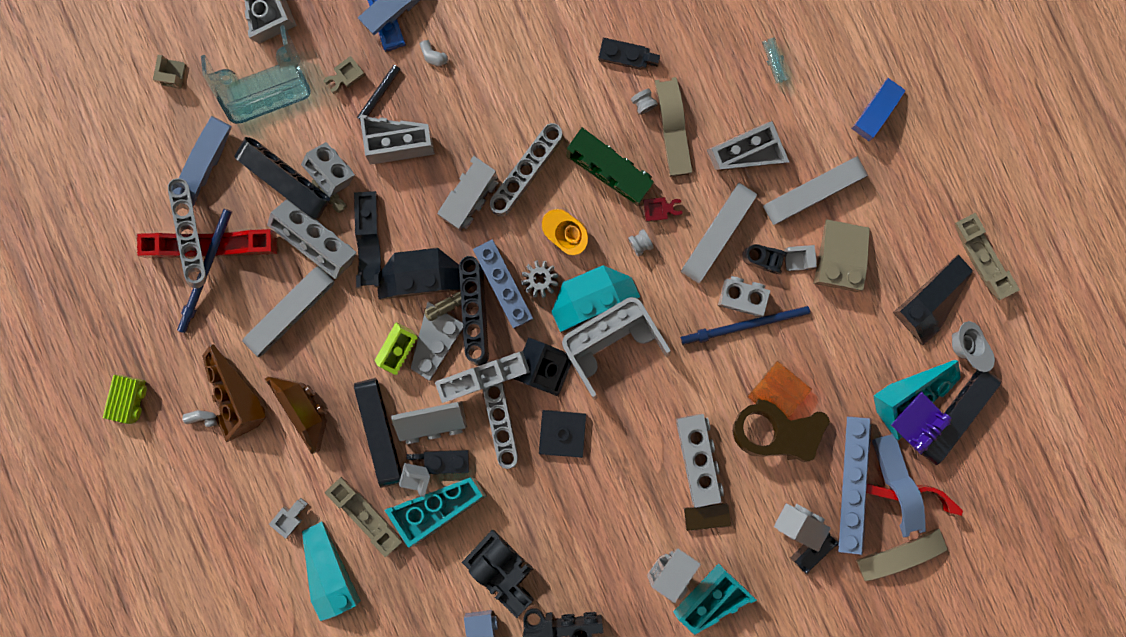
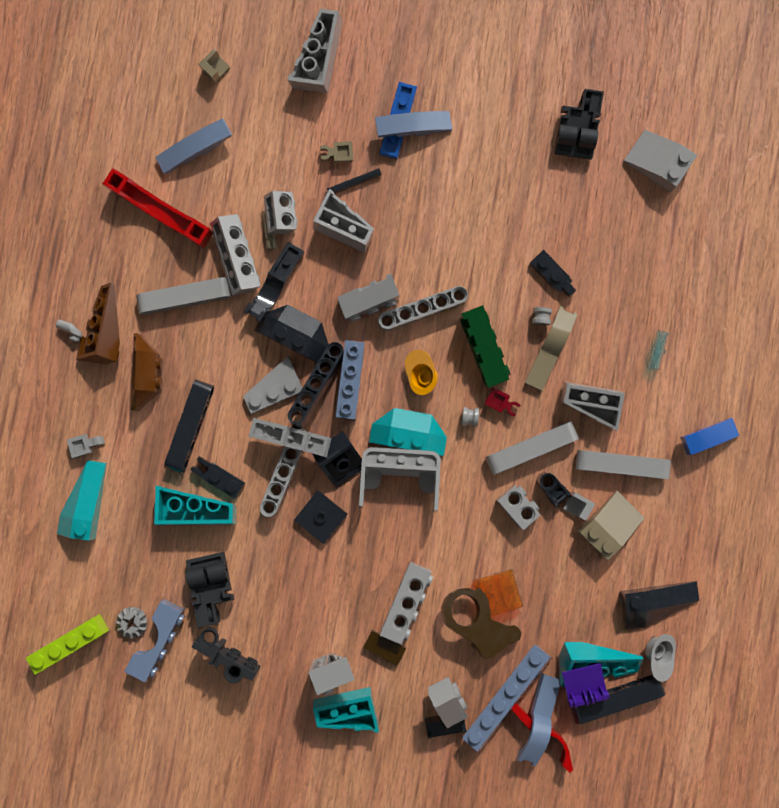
camera: 30 degrees right, 0 degrees up
(125, 399) = (25, 280): lime brick -> none
(182, 223) = (148, 182): light grey beam -> none
(189, 310) = (113, 247): dark blue bar -> none
(262, 91) = (269, 123): clear light blue windscreen -> none
(282, 177) = (243, 196): black beam -> none
(364, 515) = (139, 479): dark tan slope -> none
(395, 348) = (242, 374): lime brick -> none
(414, 478) = (192, 477): light grey panel -> none
(430, 422) = (231, 444): light grey slope -> none
(432, 57) = (410, 181): light grey arm -> none
(443, 307) = (296, 367): dark tan axle -> none
(539, 286) = (383, 389): light grey gear -> none
(704, 335) = (470, 514): dark blue bar -> none
(902, 556) = (507, 773): dark tan slope -> none
(984, 258) = (713, 597): dark tan slope -> none

